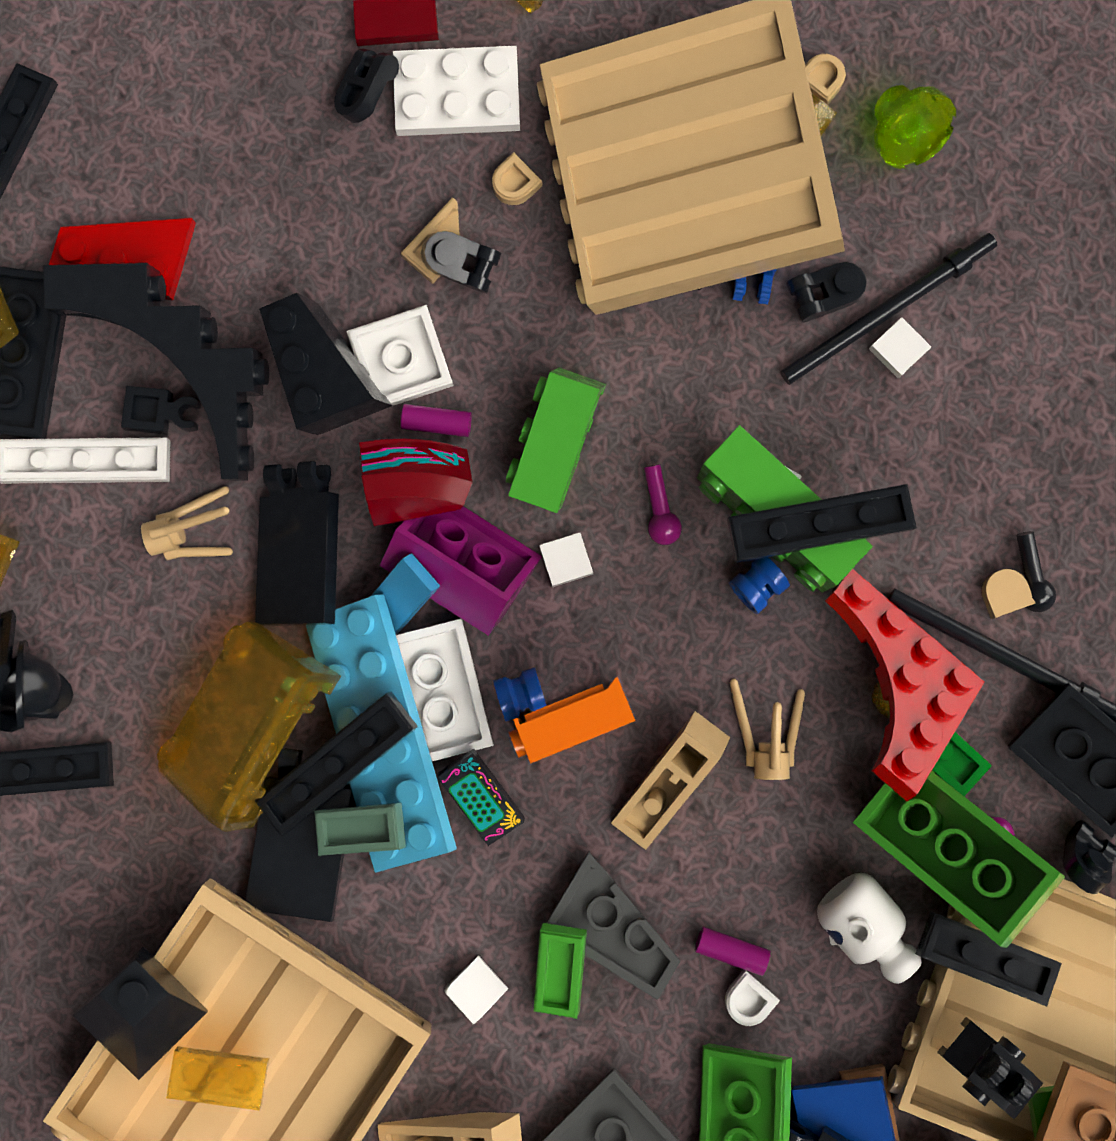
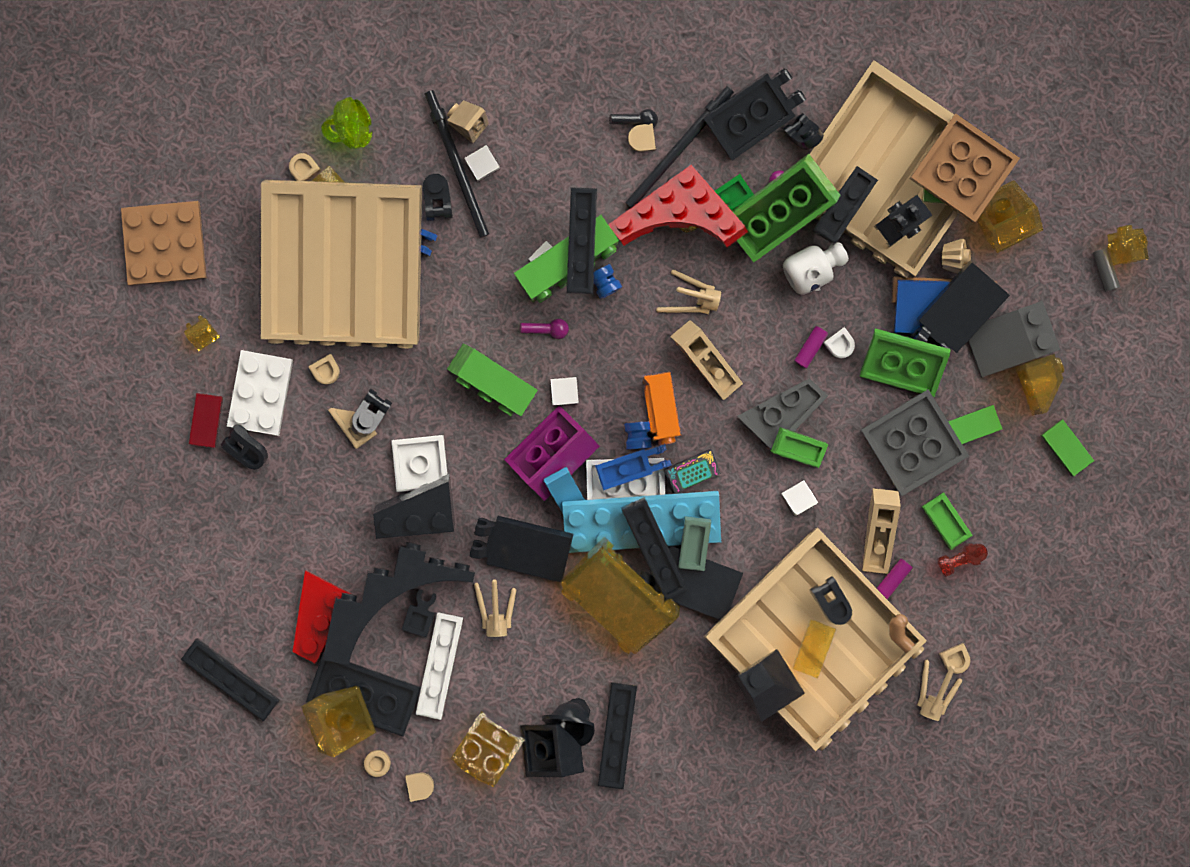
camera: 75 degrees left, 5 degrees up
(295, 1103) = (837, 610): none -> black plate
(413, 478) = (498, 468): dark red slope -> none
(436, 420) = (463, 449): magenta axle -> none
(462, 691) = (629, 467): none -> blue hinge
(965, 308) = (468, 120): none -> tan slope

